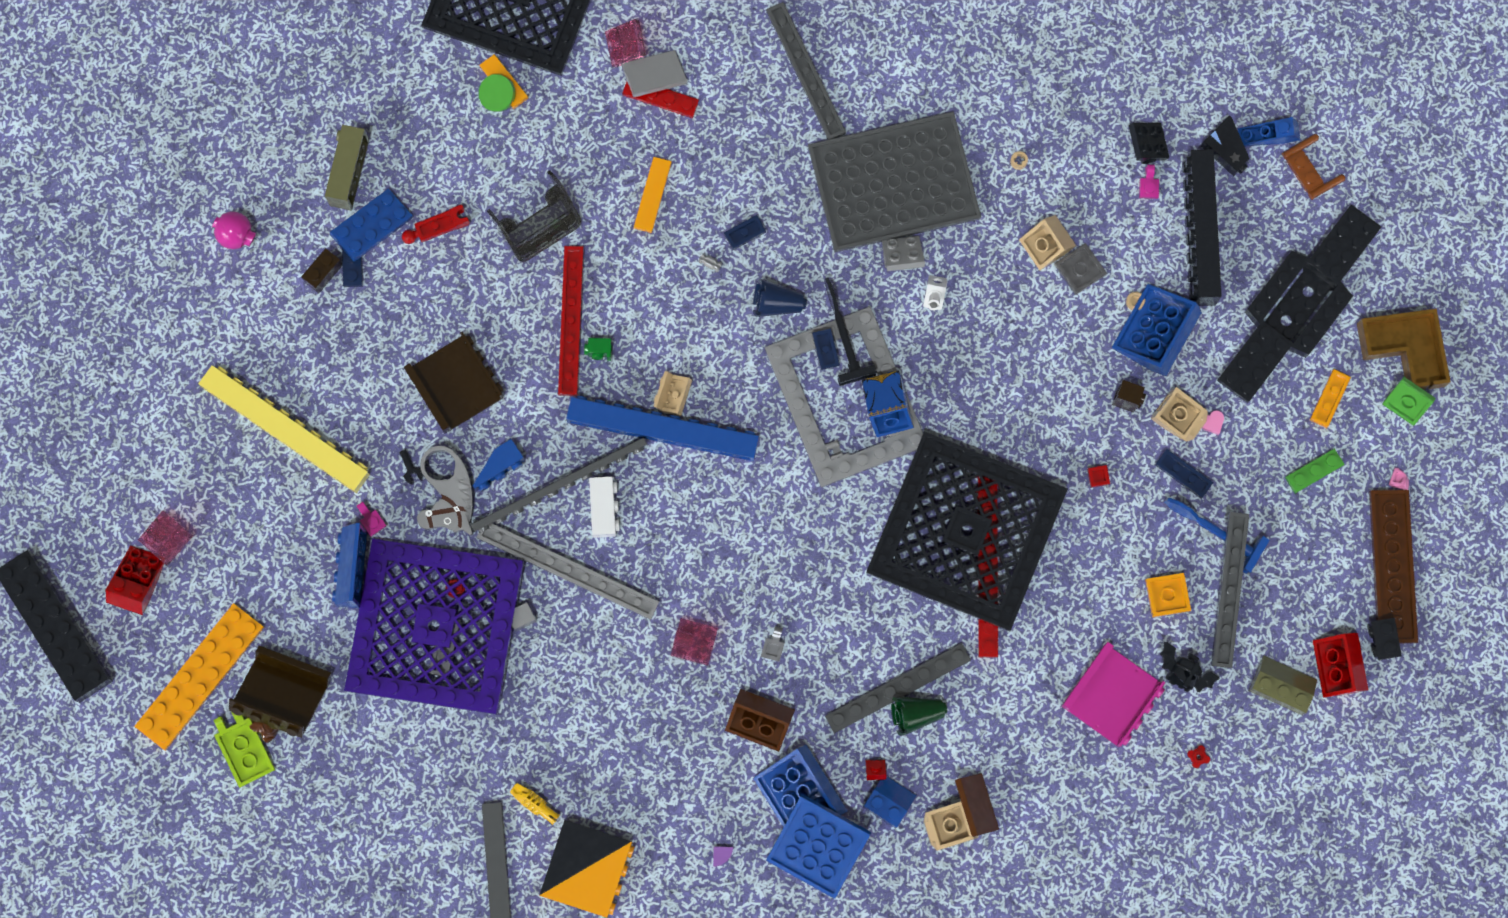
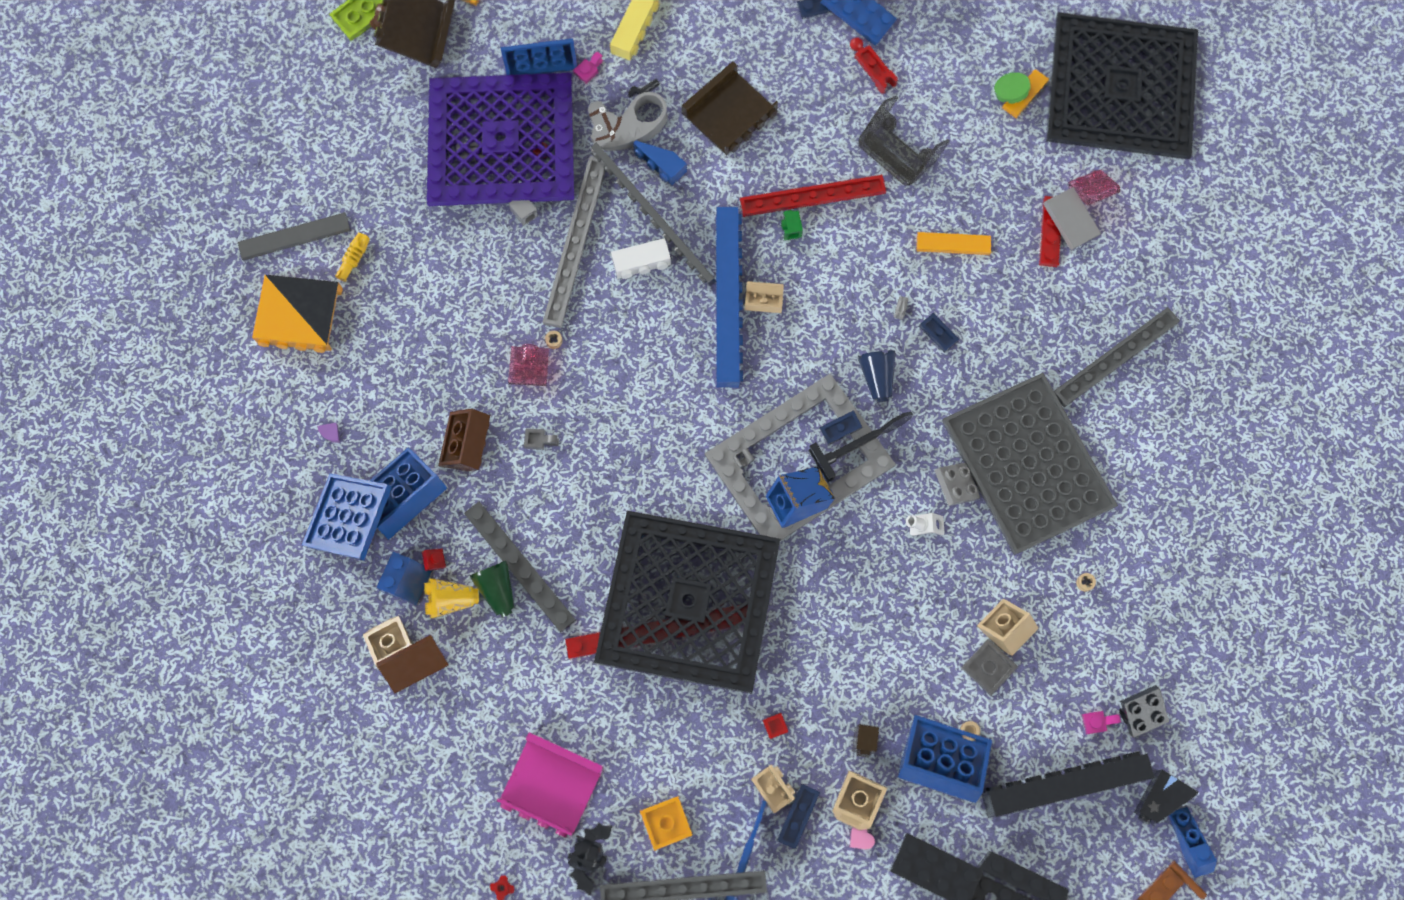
camera: 80 degrees right, 5 degrees down
(671, 606) = (554, 345): none -> tan bush
(918, 761) = (448, 597): none -> yellow cone
(1155, 490) = (773, 788): none -> tan bracket

